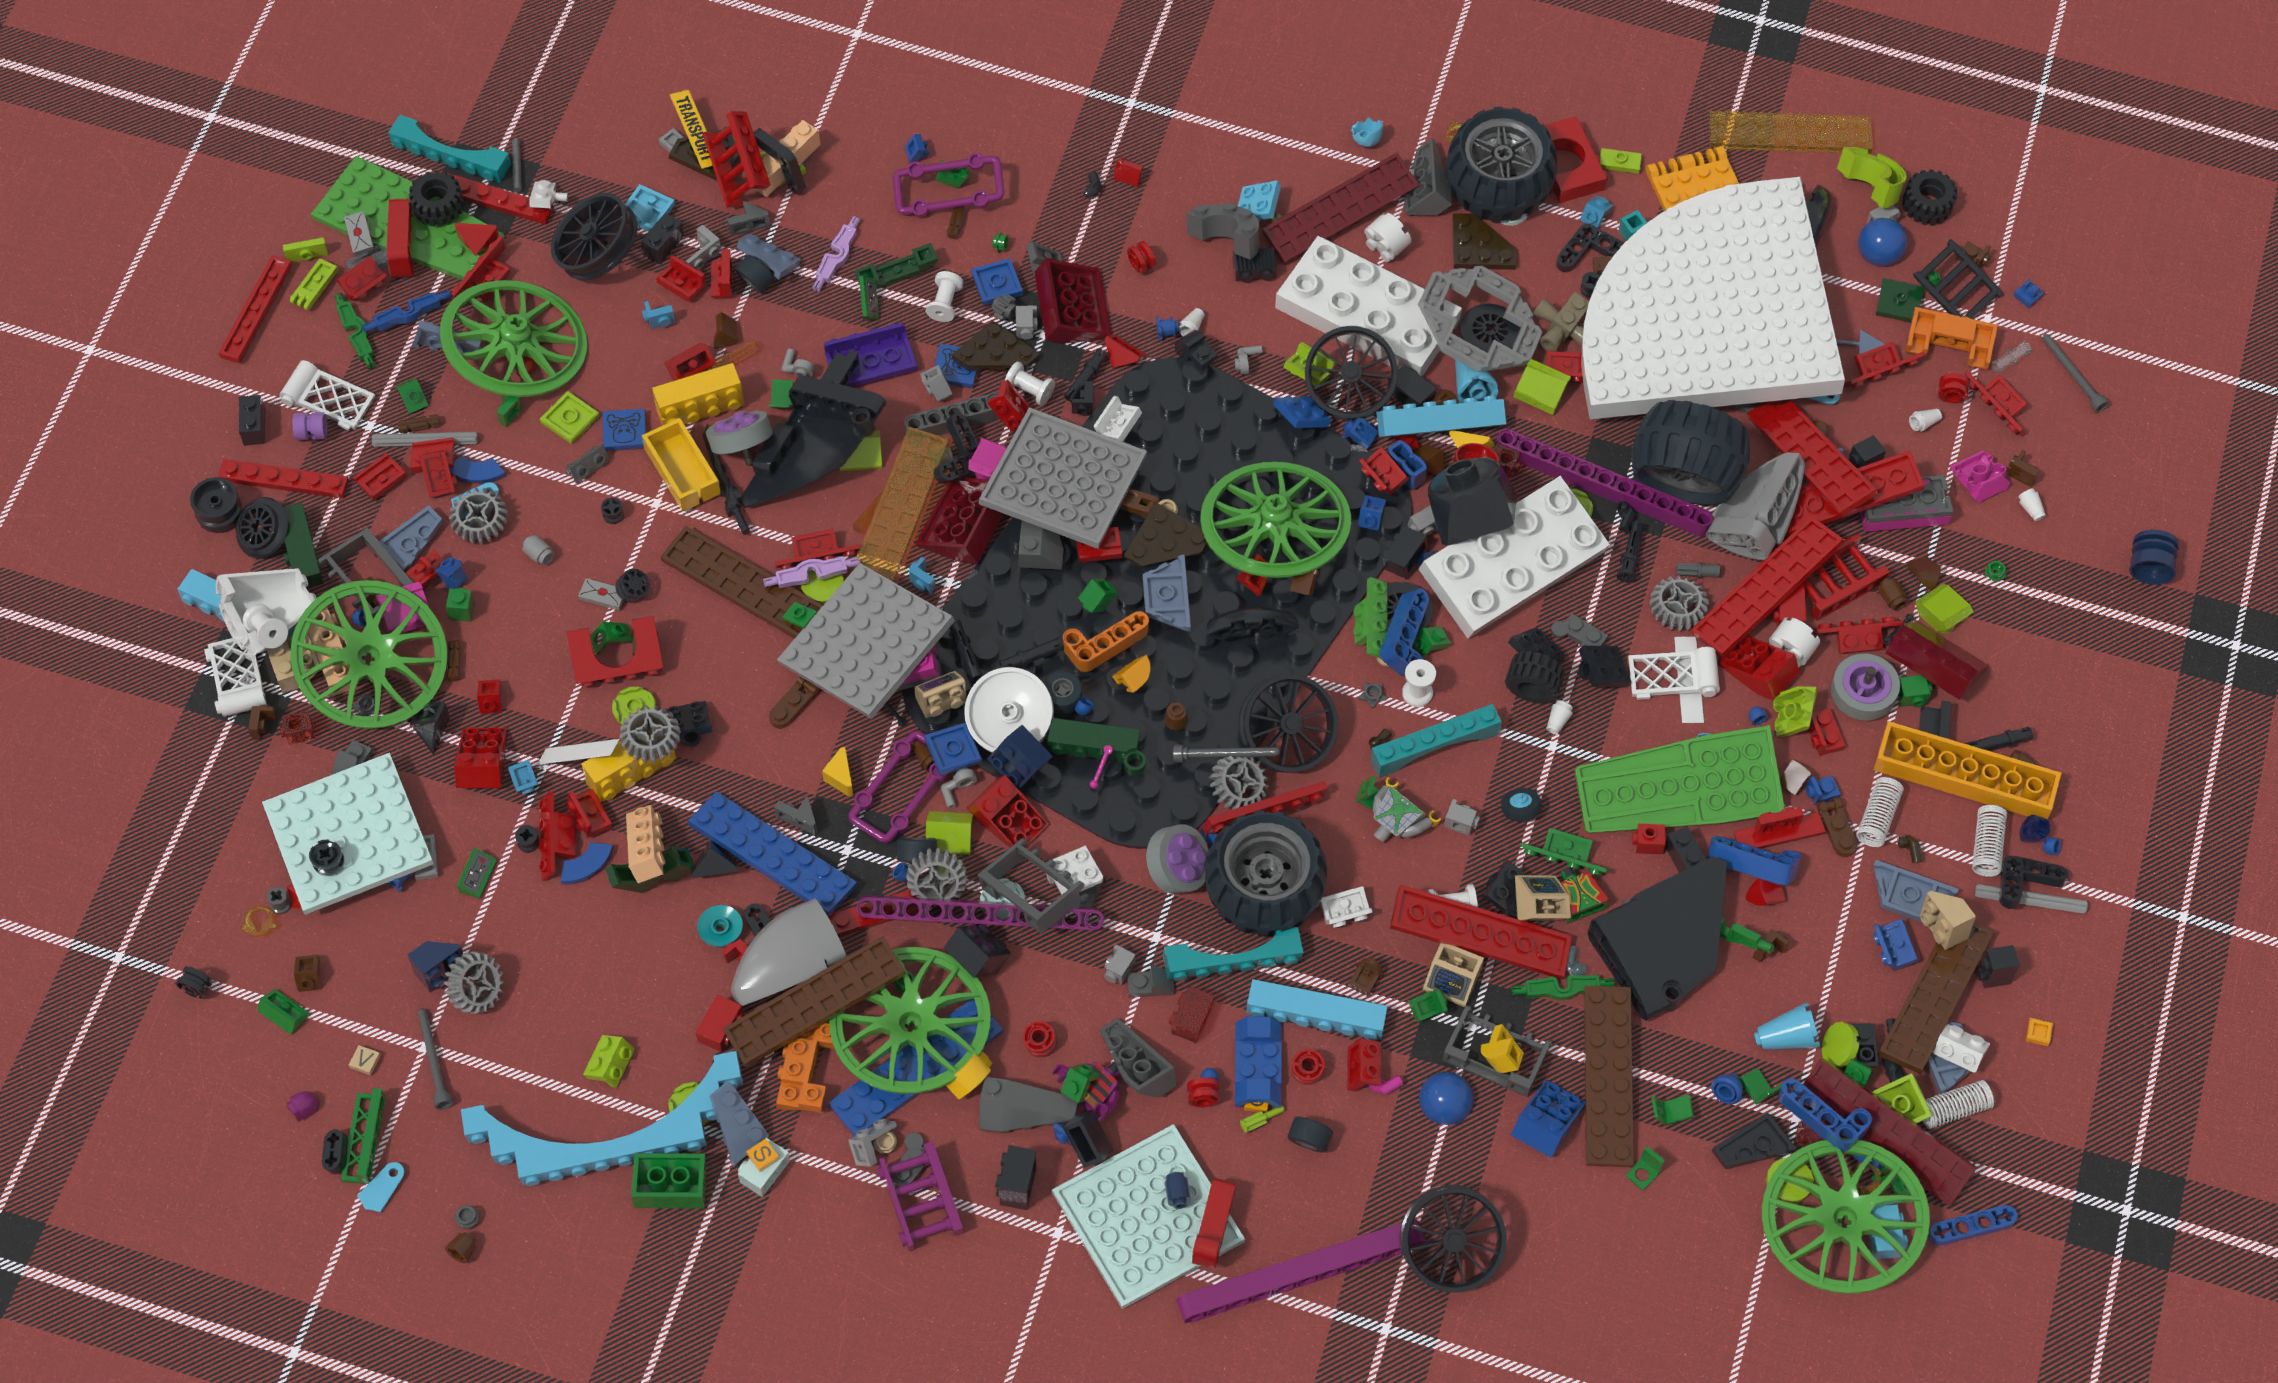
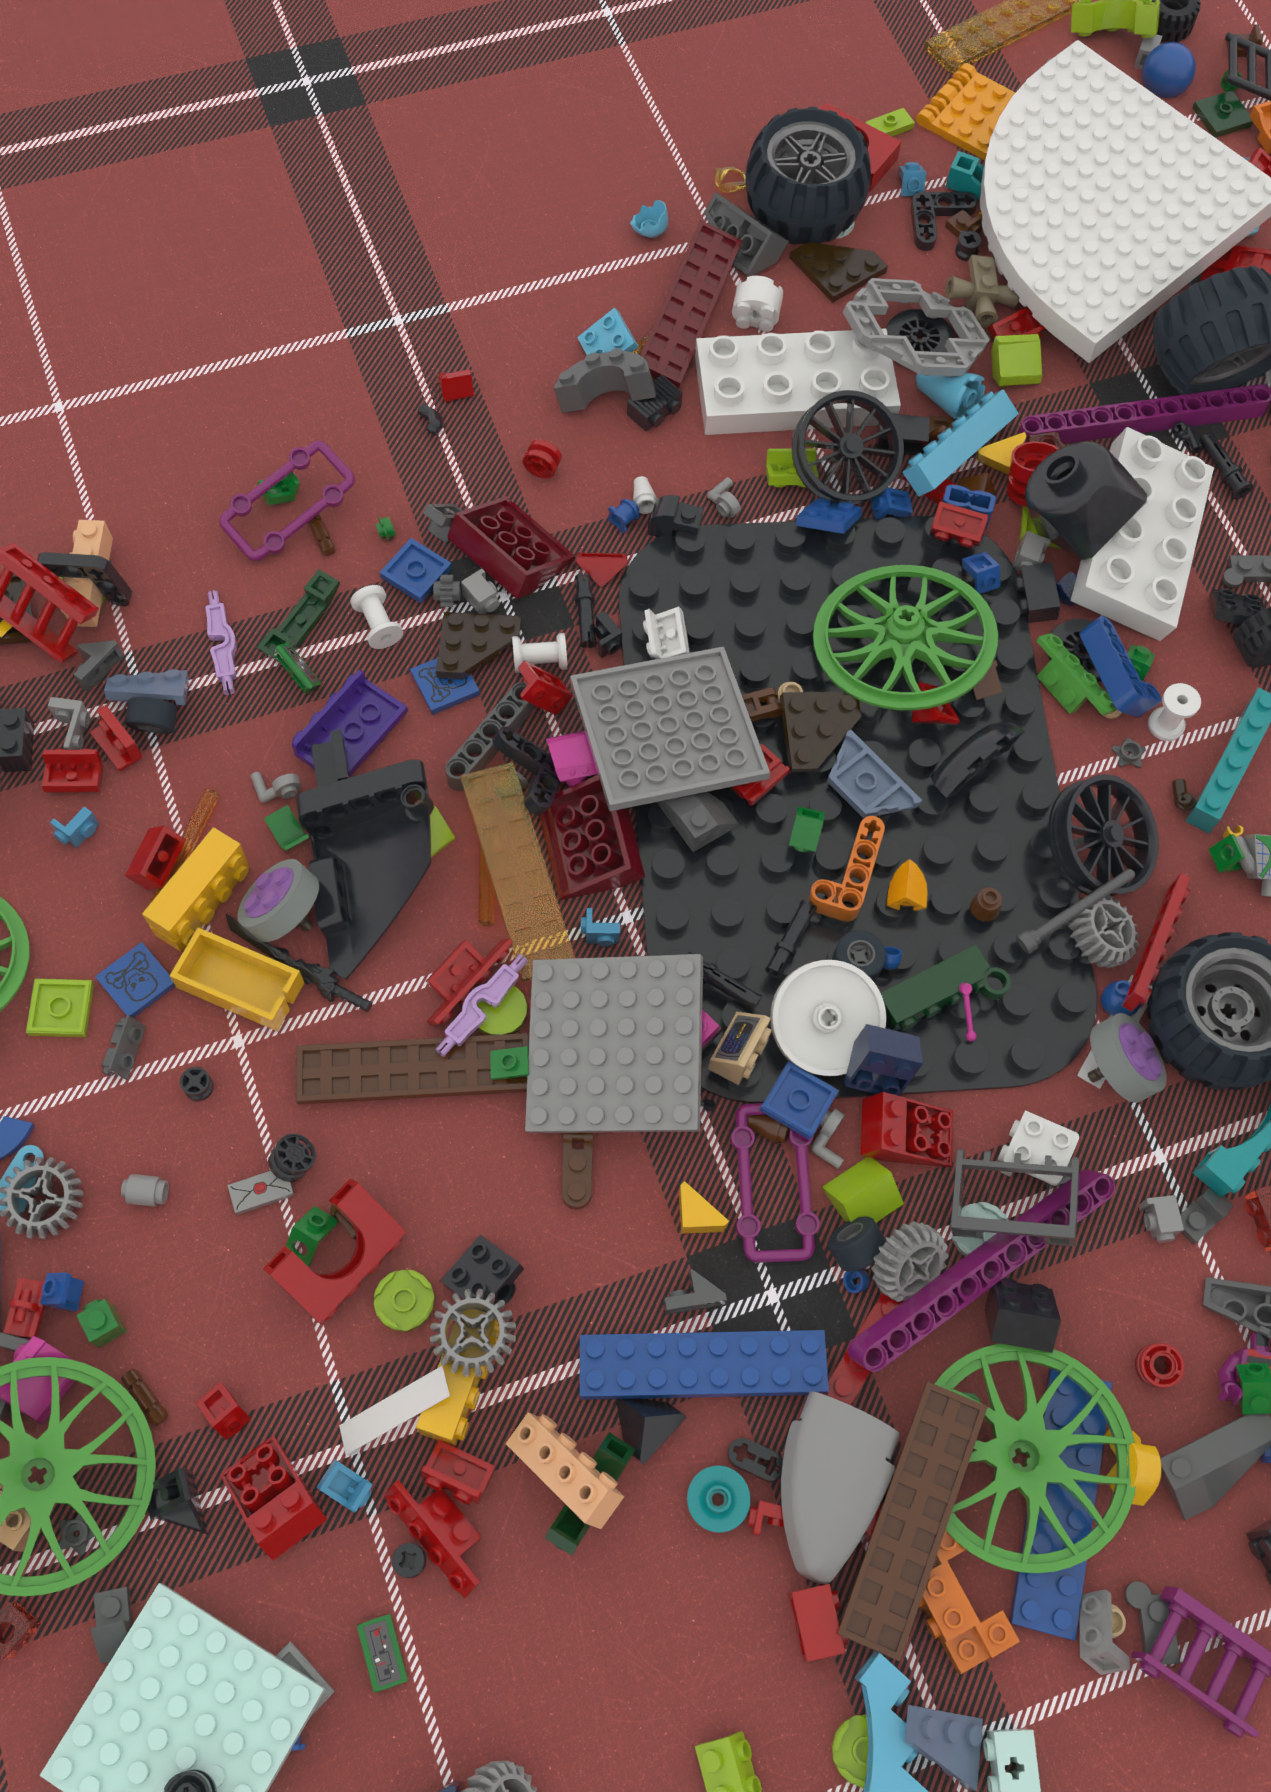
camera: 40 degrees left, 5 degrees up
(586, 865) = (504, 1537): blue tile -> none
(726, 331) = (170, 799): reddish brown tile -> none
(762, 1155) = (1013, 1761): light orange tile -> none
(916, 148) = (219, 484): blue tile -> none
(936, 383) = (445, 711): light grey brick -> none

